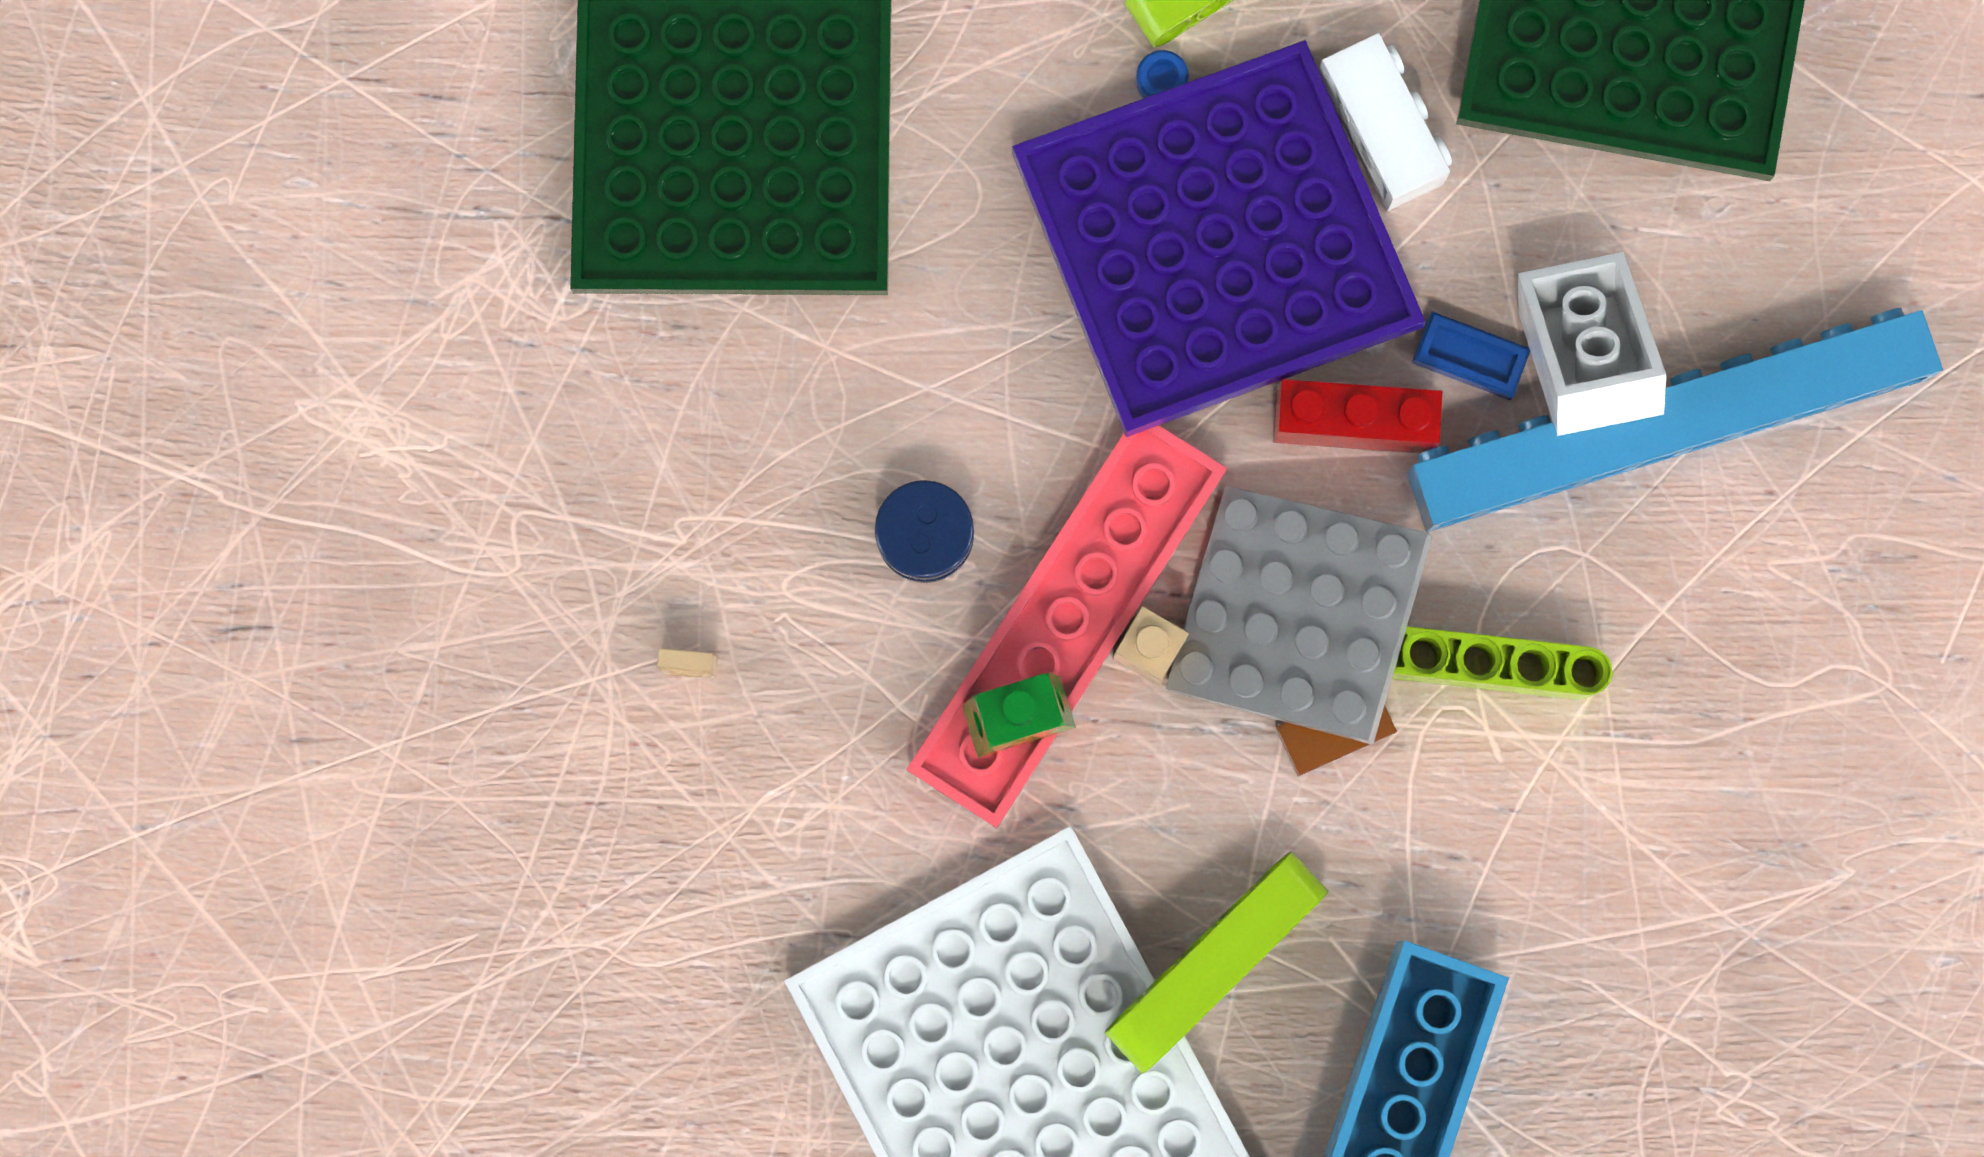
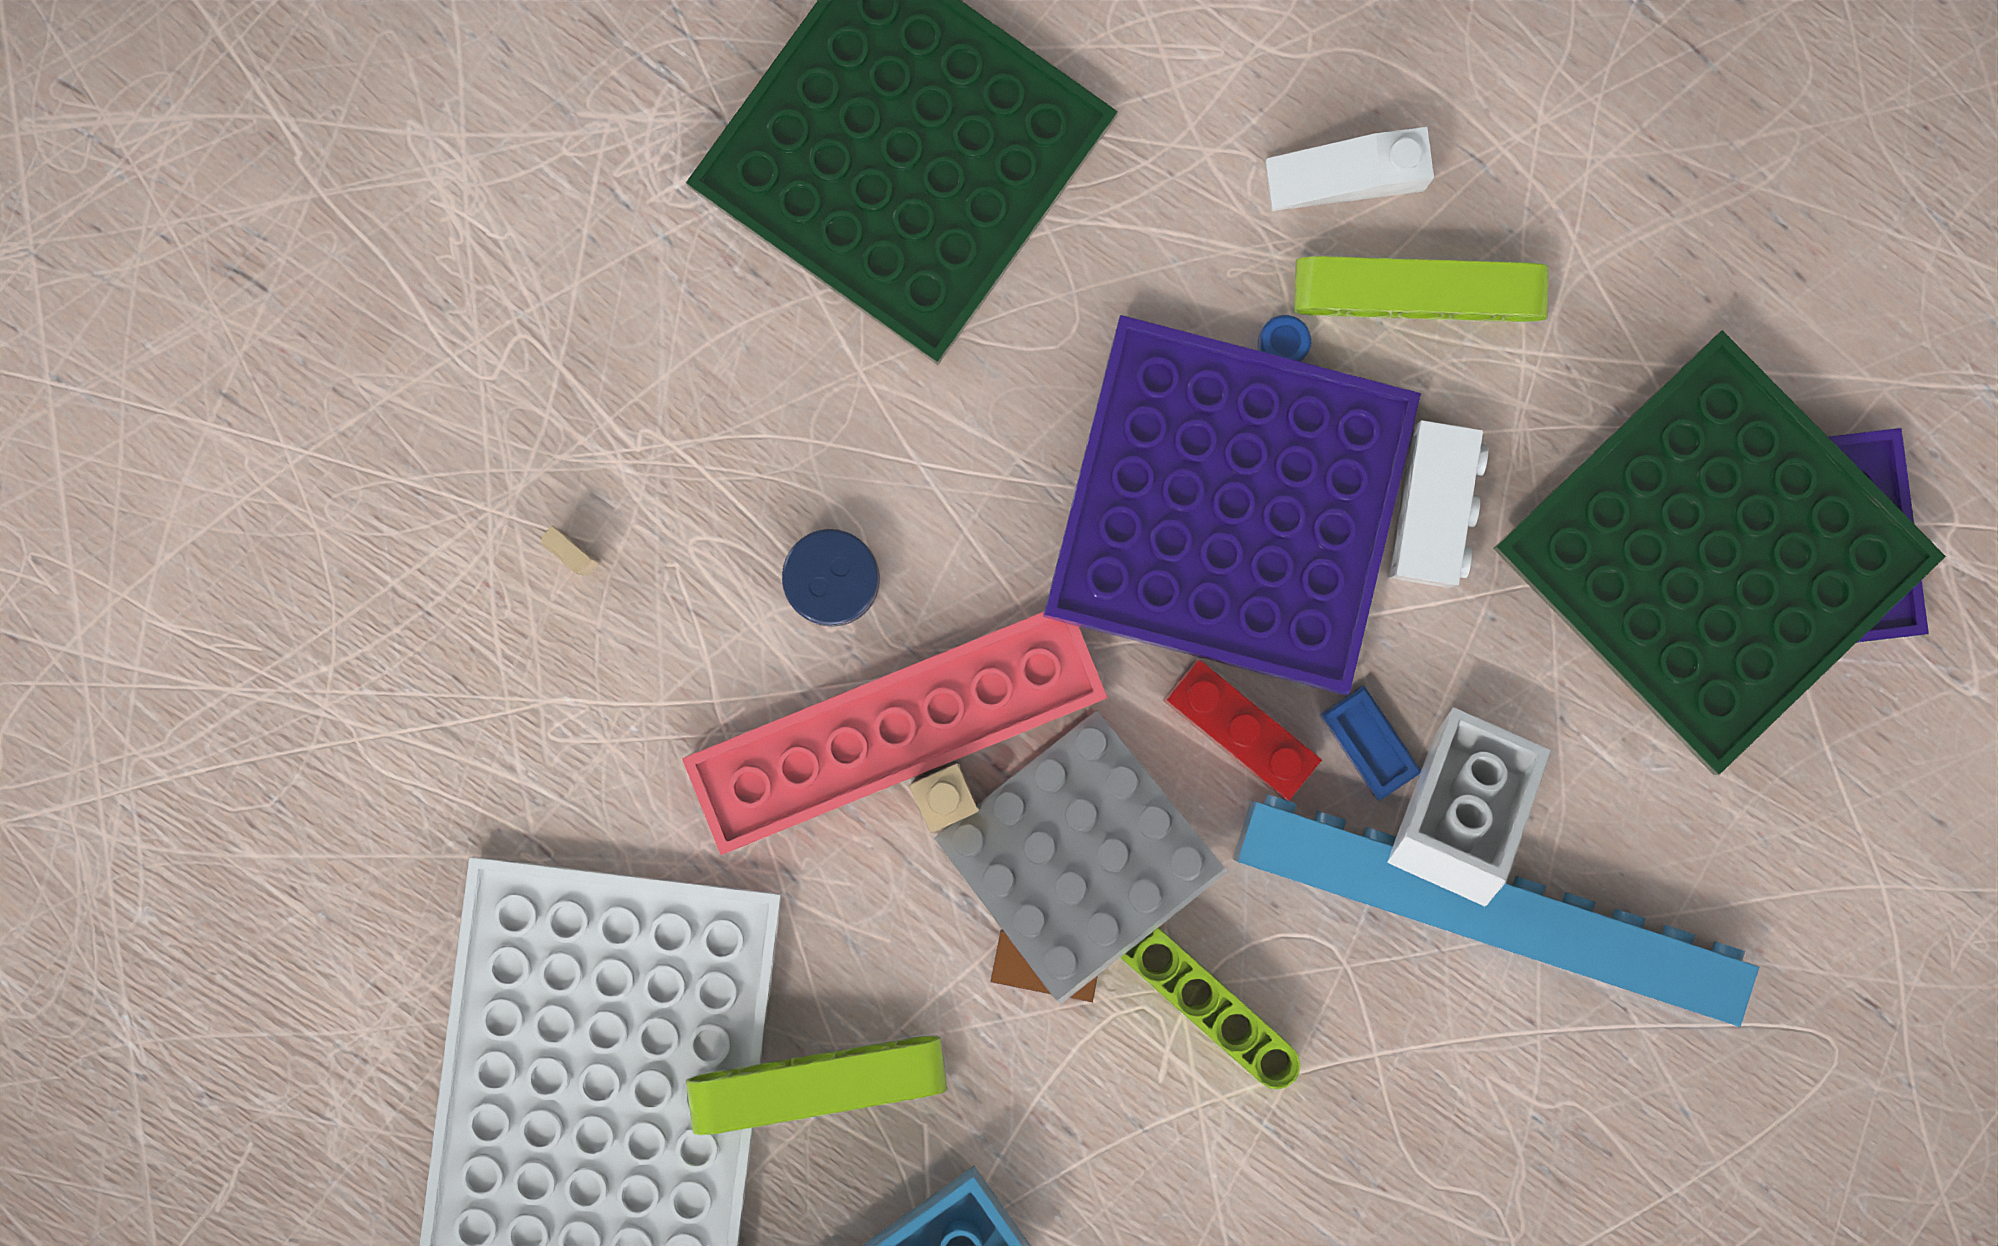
camera: 35 degrees right, 5 degrees up
(1018, 713) = (798, 782): green torso -> none

